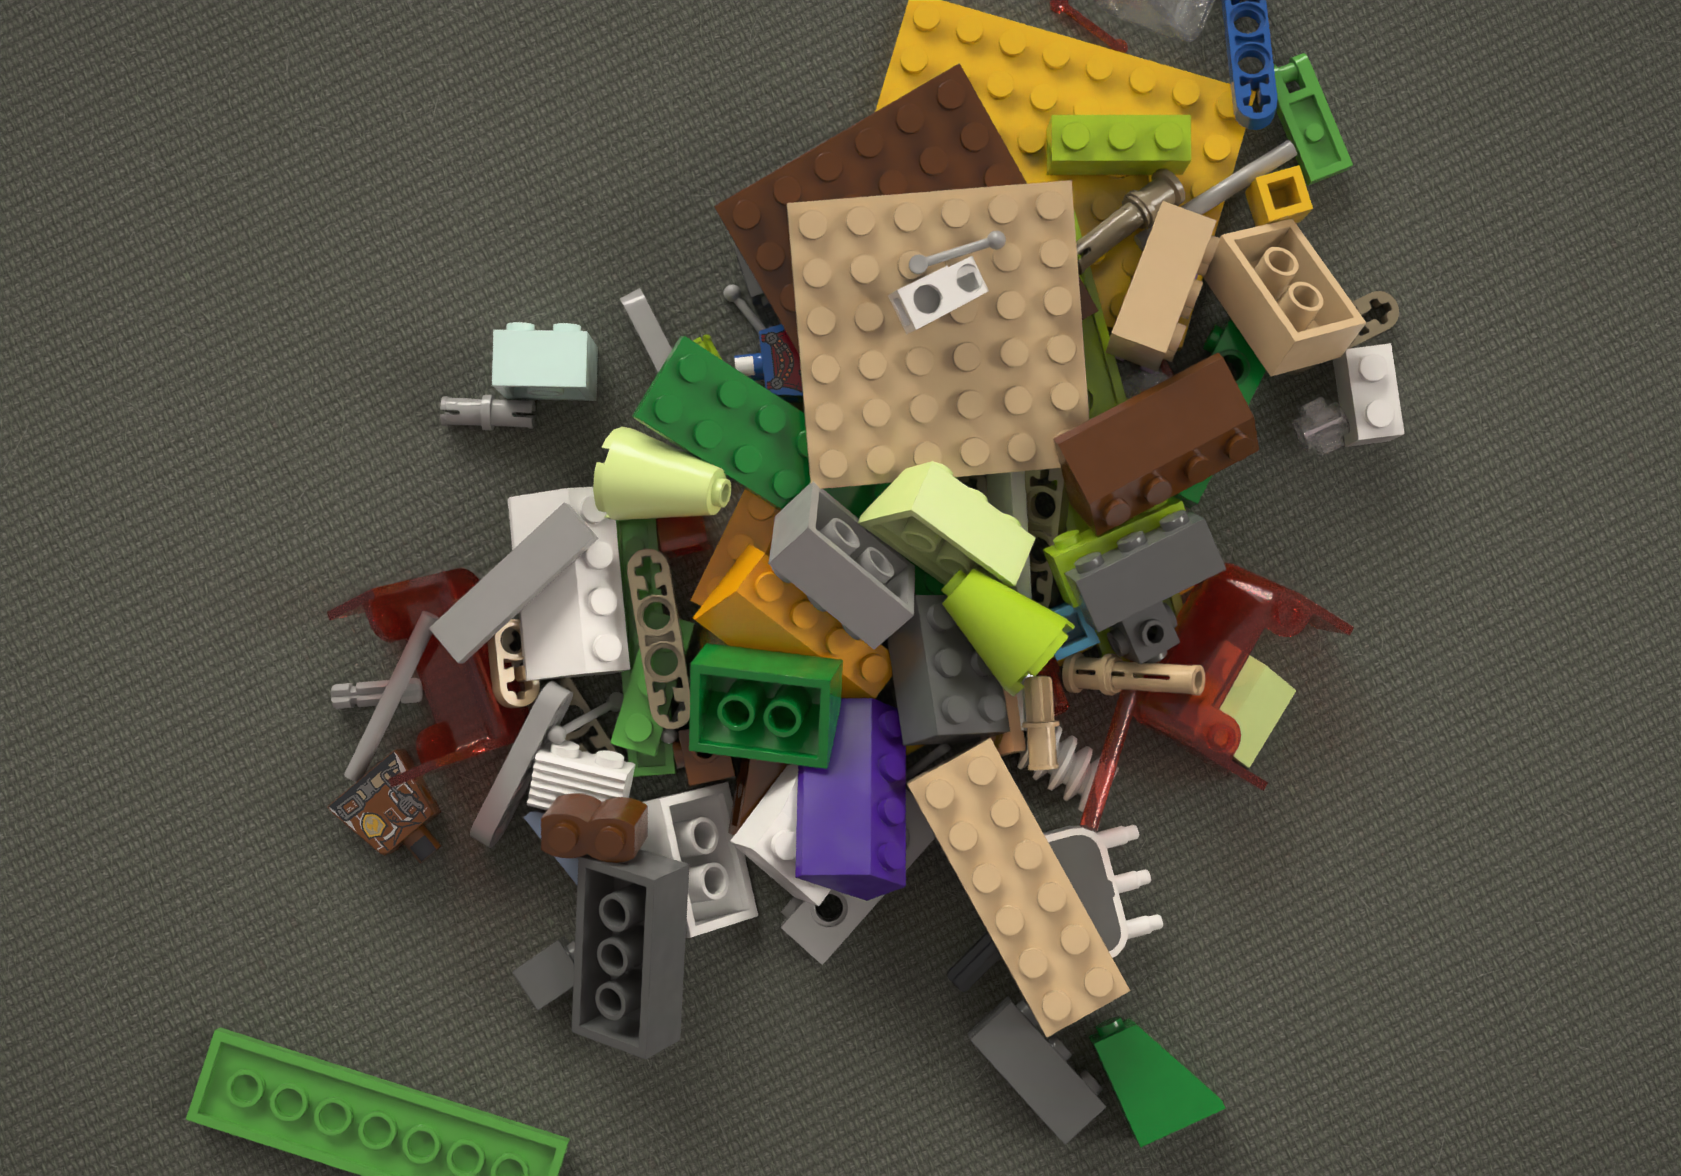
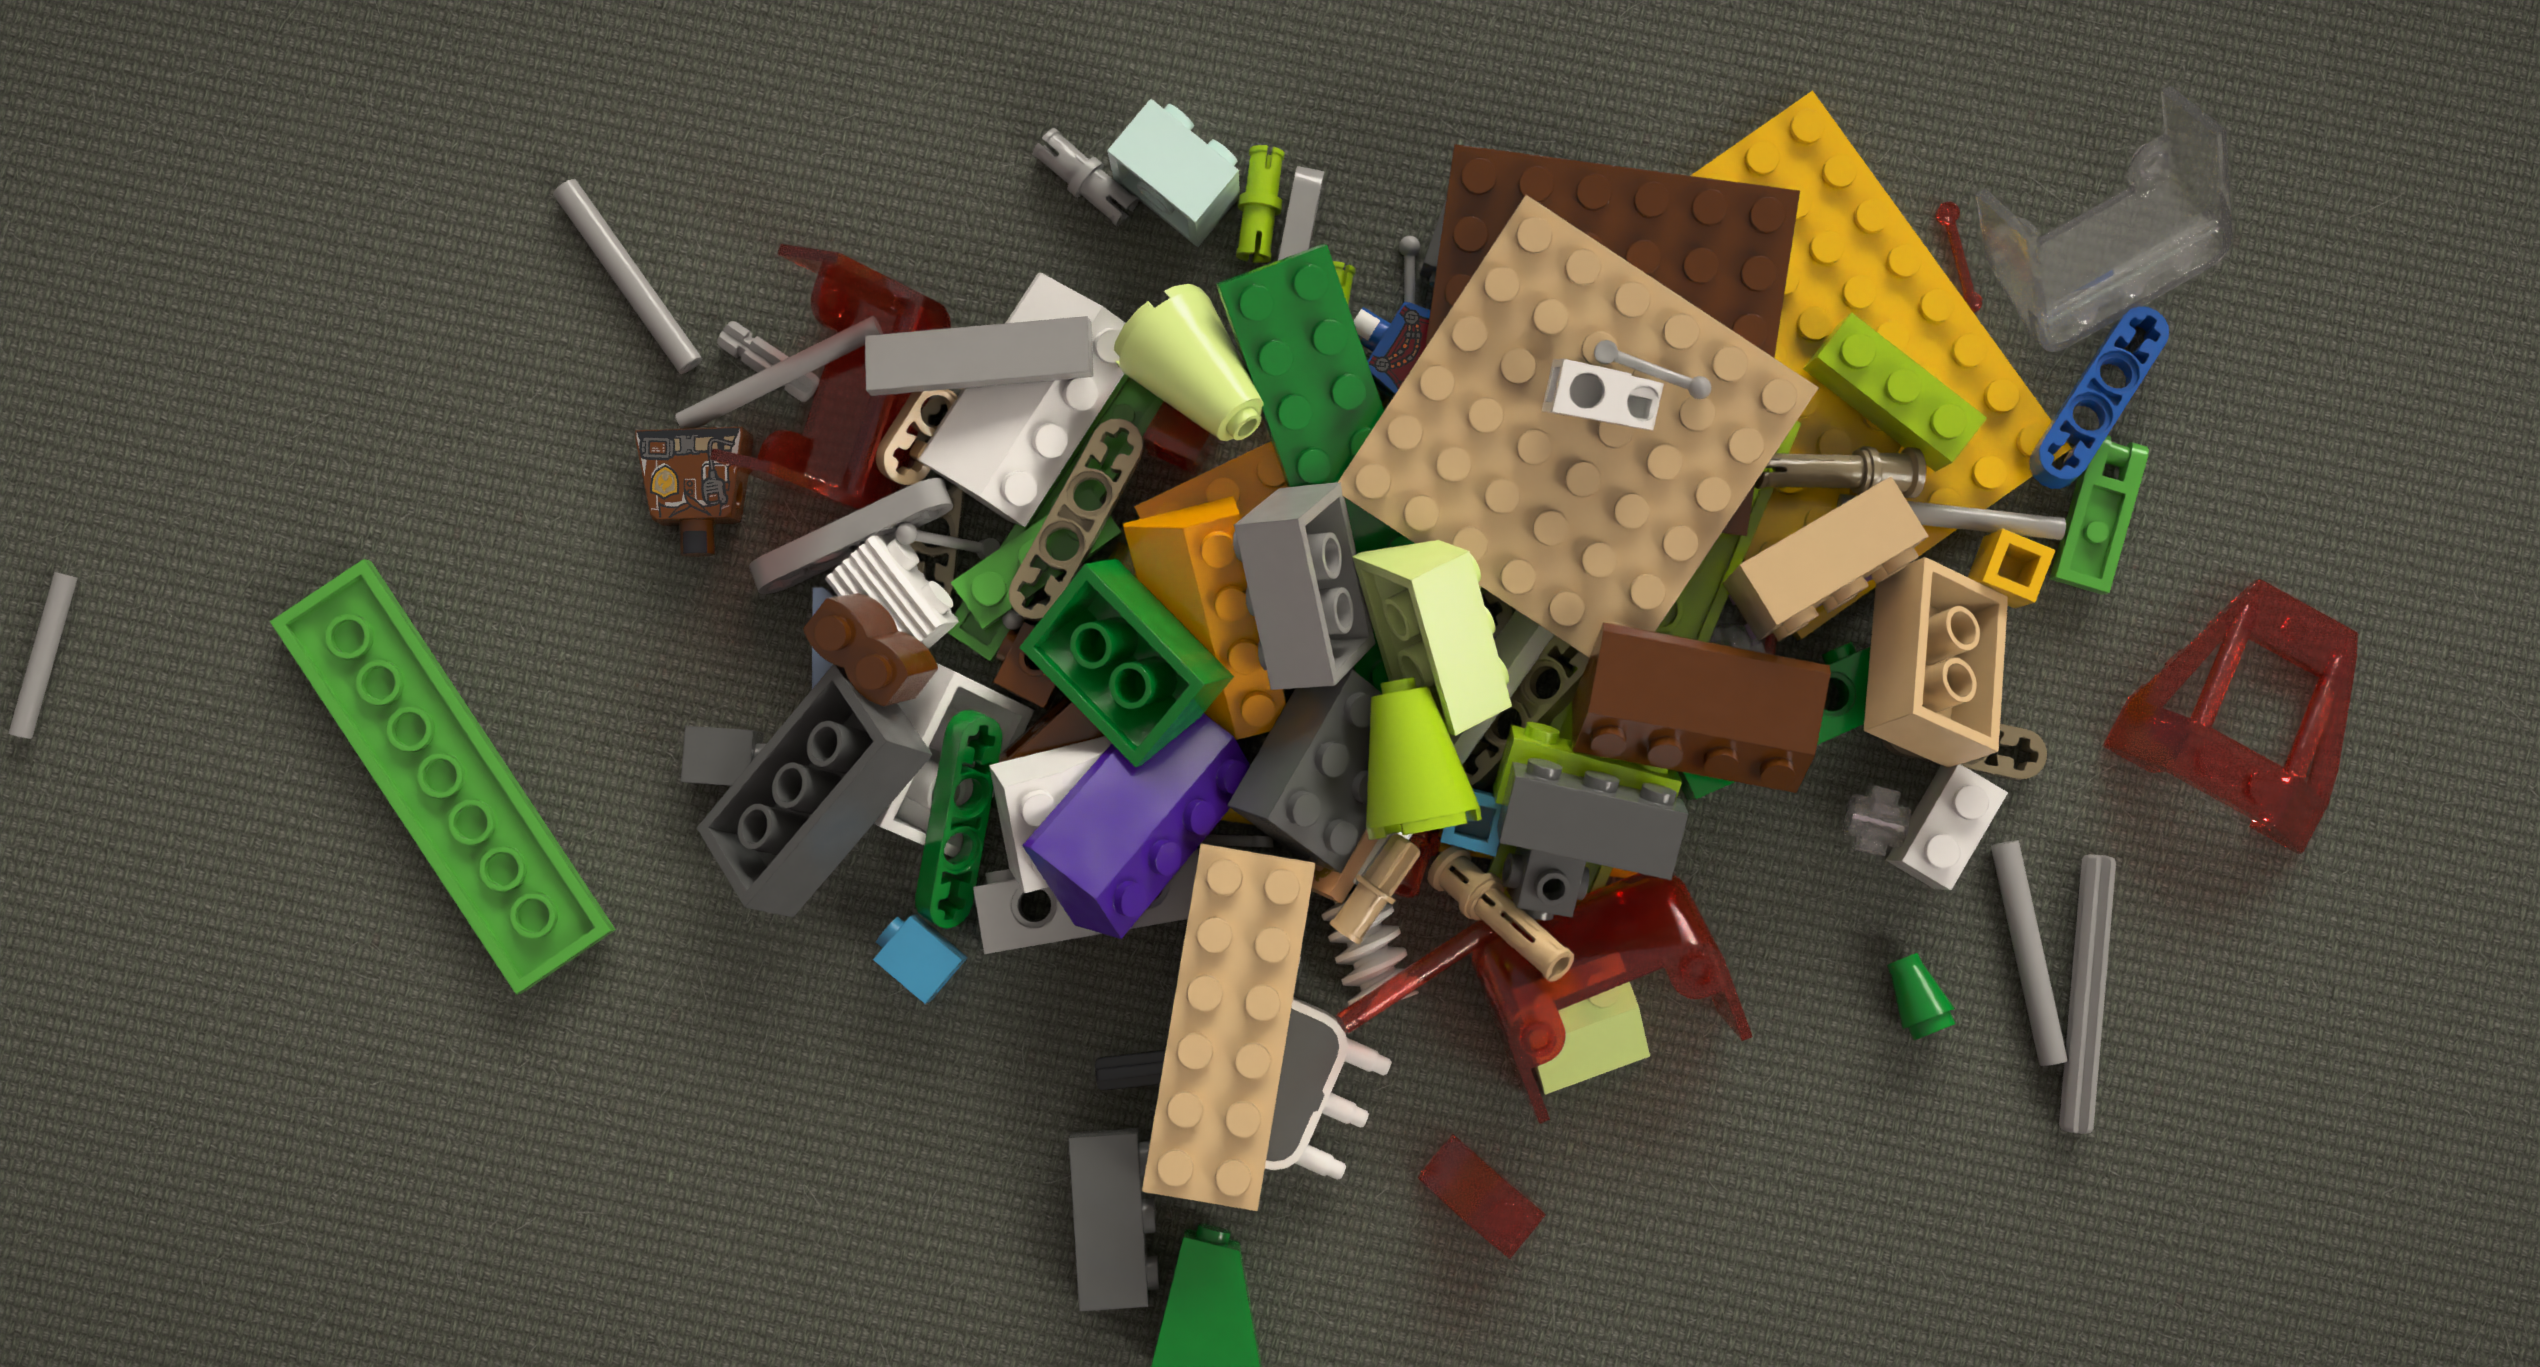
camera: 35 degrees right, 0 degrees up
(240, 710) = (627, 276): none -> light grey piece
(615, 341) = (1260, 204): none -> lime pin
(731, 895) = (948, 819): none -> green beam
(779, 1000) = (918, 956): none -> dark azure brick
(1261, 865) = (1481, 1196): none -> clear red slope
(1437, 518) = (1919, 998): none -> green cone
(1482, 434) = (2029, 953): none -> light grey piece
(1508, 221) = (2196, 753): none -> clear red windscreen
(1539, 431) = (2087, 994): none -> light grey axle

